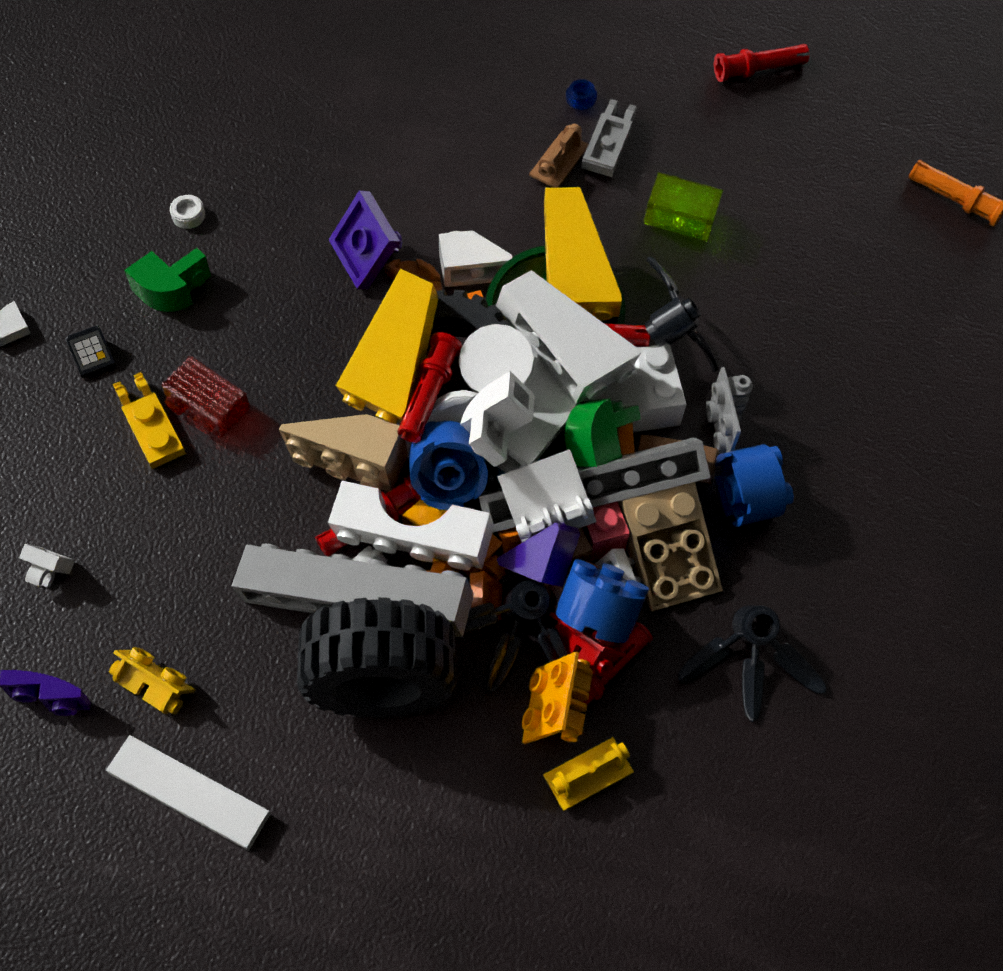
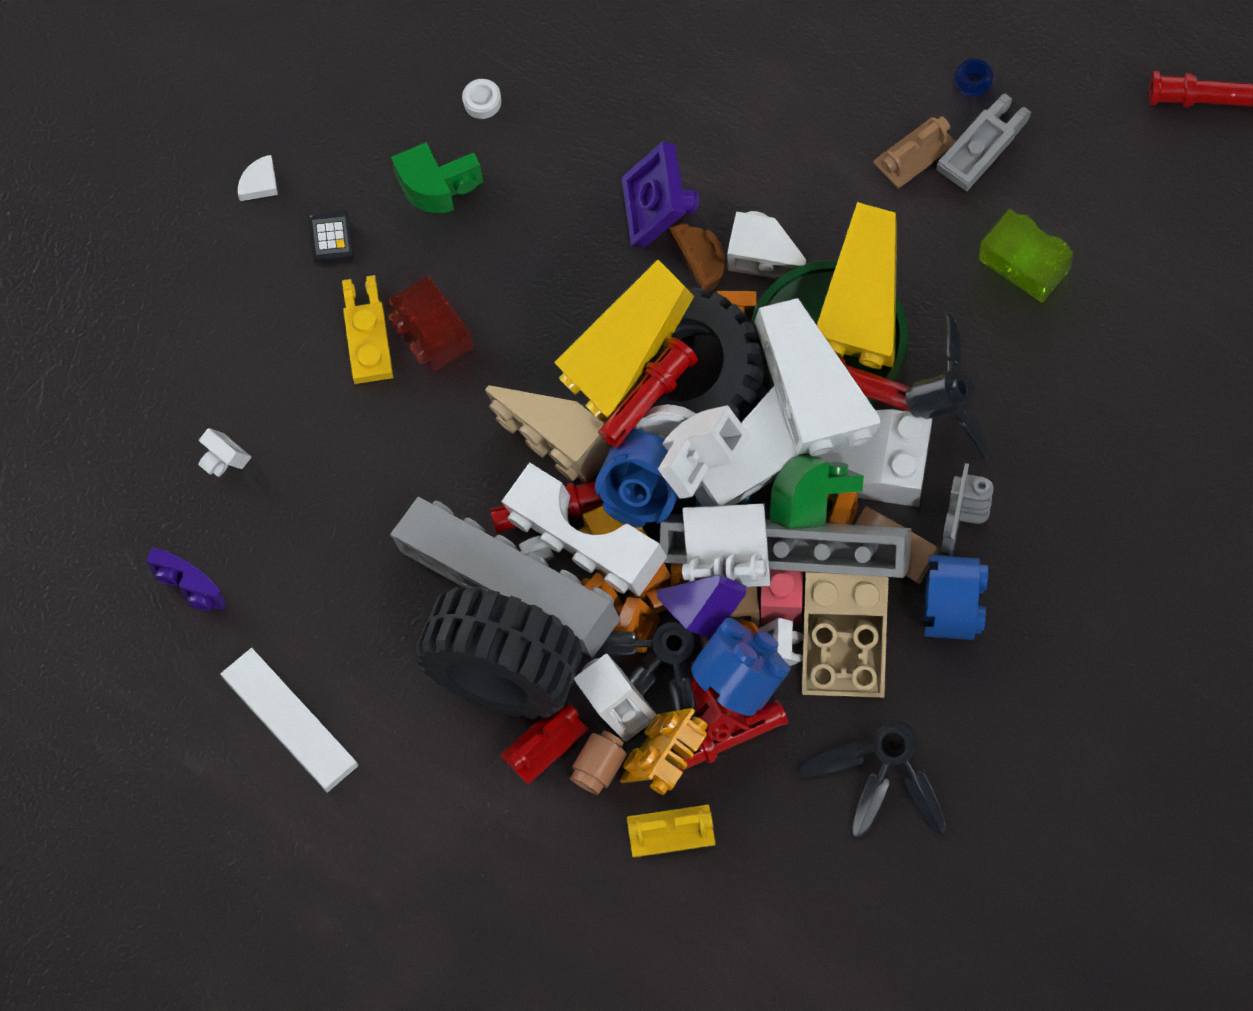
camera: 30 degrees right, 5 degrees up
(164, 684) = (279, 587): yellow hinge -> none
(441, 732) = (544, 743): none -> red hinge
(494, 352) = (727, 378): white tile -> none
(495, 665) = (614, 697): none -> white slope
(498, 732) = (598, 762): none -> nougat brick

